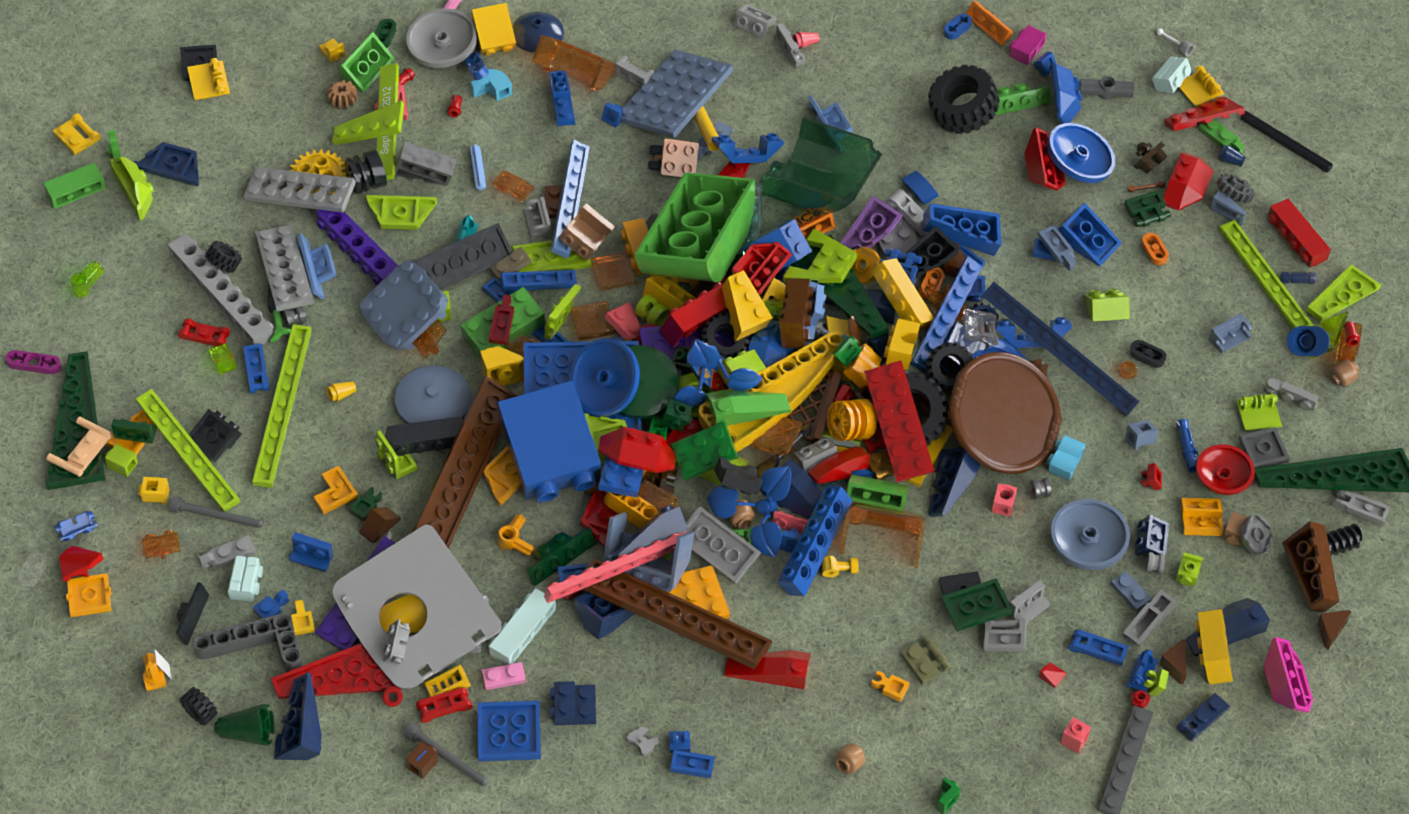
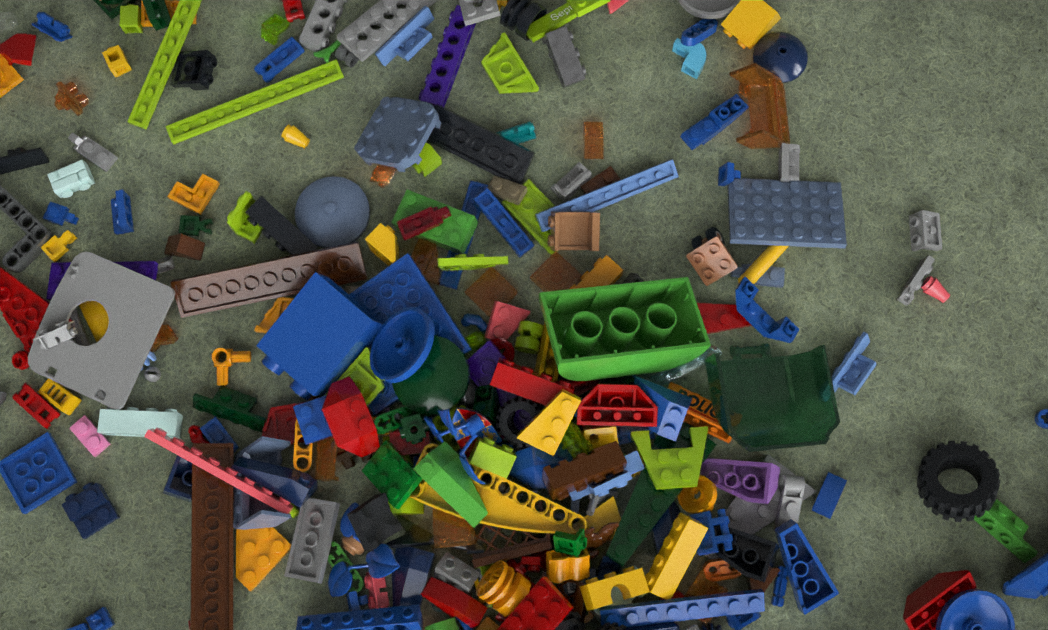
camera: 65 degrees right, 20 degrees up
(178, 504) = (115, 86): dark grey piece -> none
(454, 108) = (647, 42): red pin -> none
(477, 167) = (595, 100): light blue axle -> none
(637, 738) = (86, 581): light grey piece -> none

